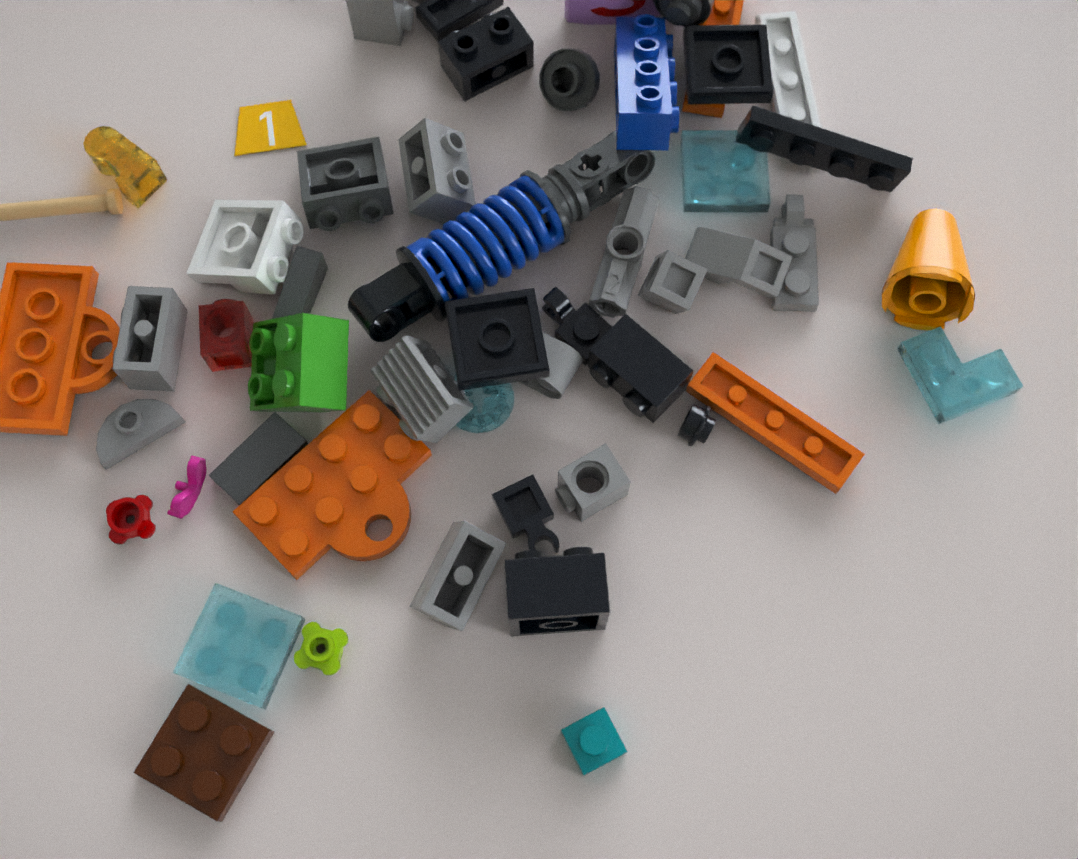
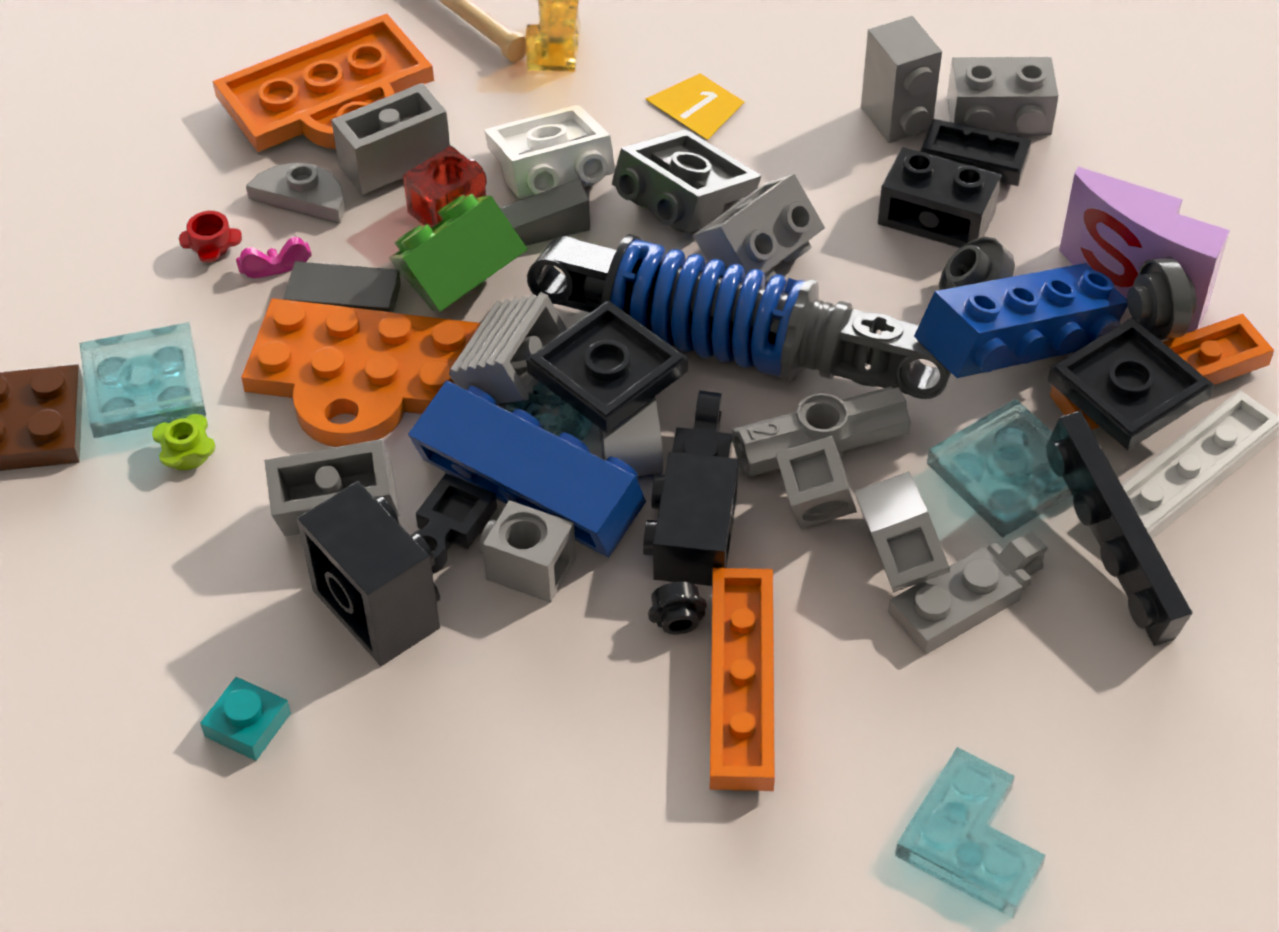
camera: 55 degrees right, 20 degrees down
(528, 440) = (528, 465): none -> blue brick
(930, 274) = (1063, 713): light orange cone -> none

